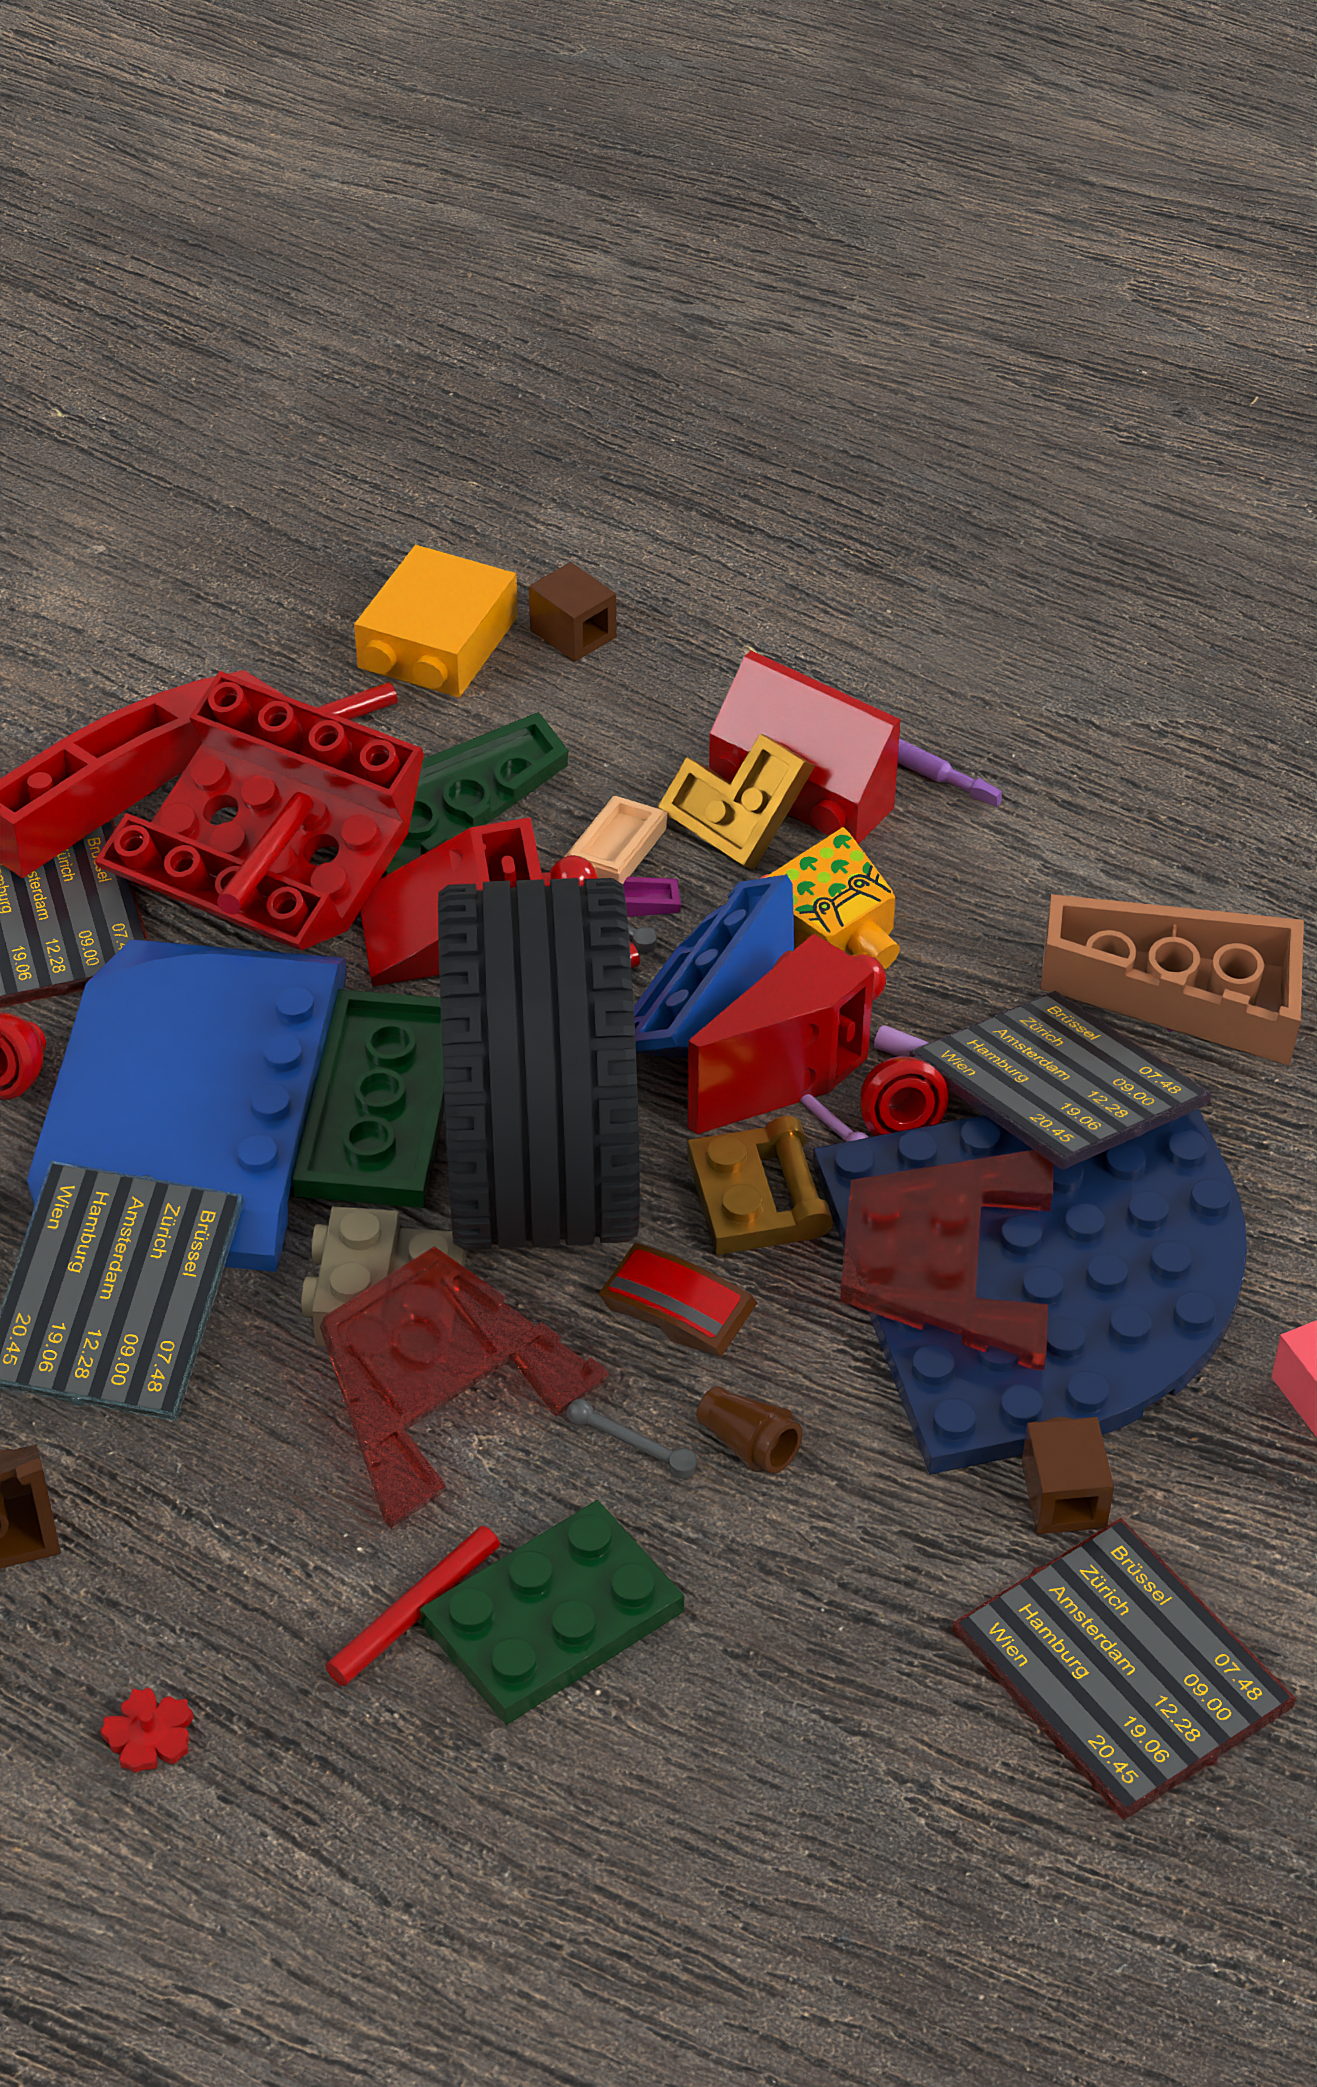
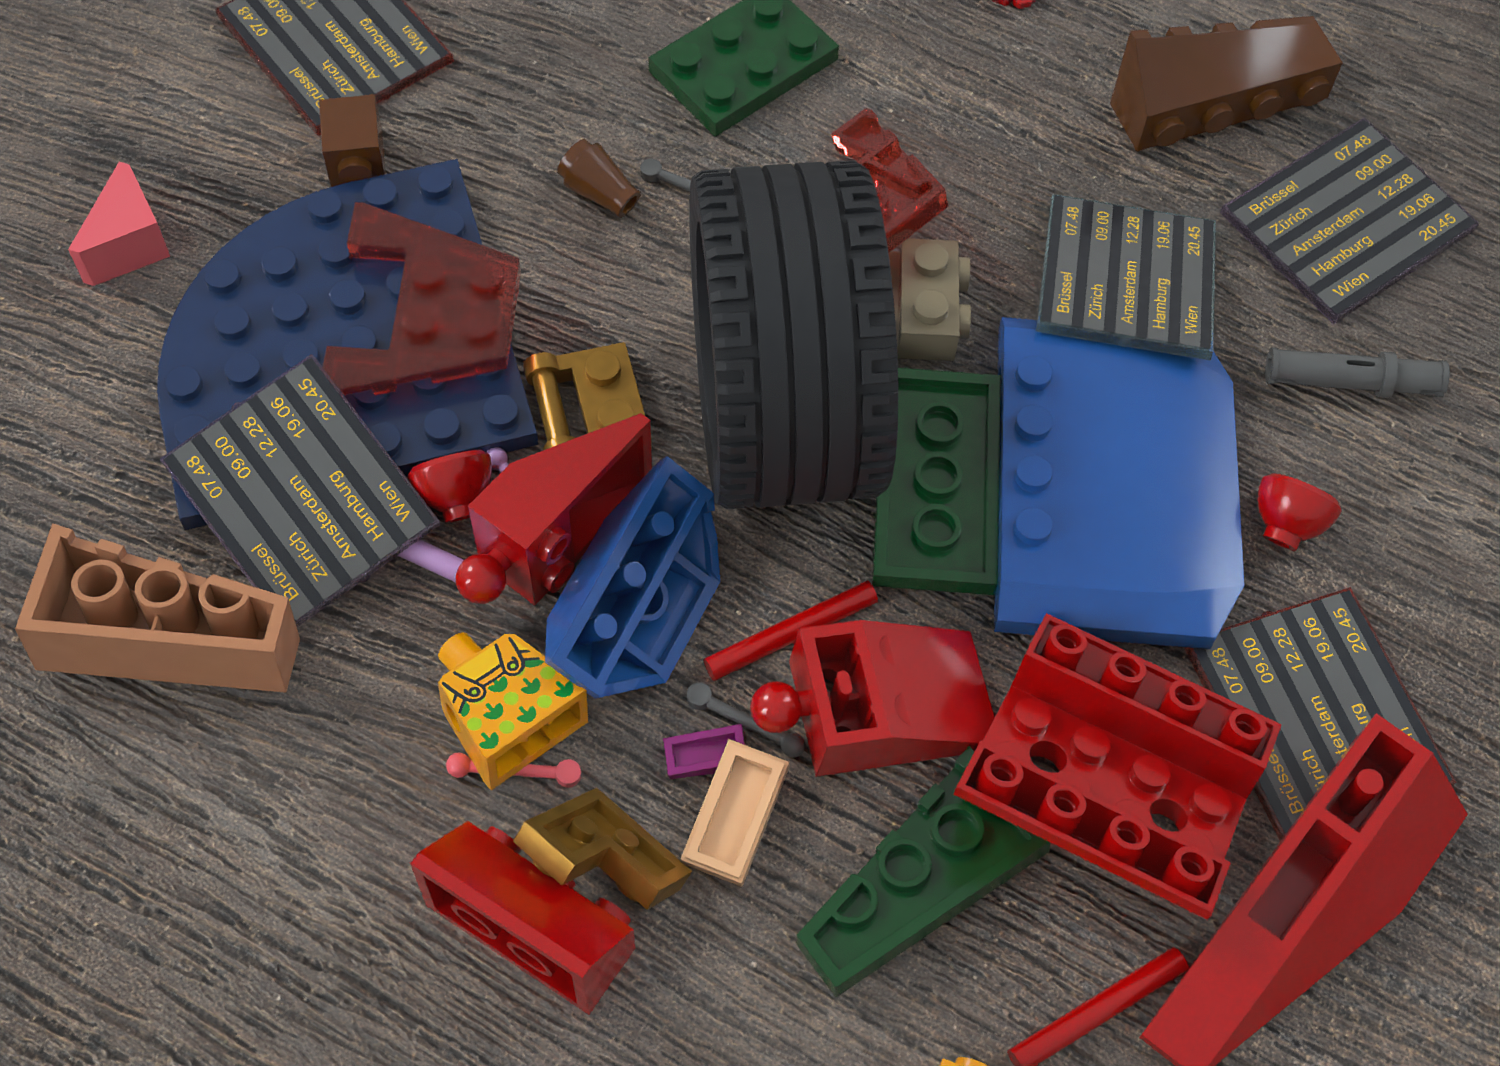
camera: 175 degrees right, 15 degrees up
(265, 853) = (1100, 688): red bar -> none
(406, 1609) = (843, 61): red bar -> none
(679, 1297) = (647, 270): slope -> none
(941, 771) = (372, 955): medium lavender piece -> none

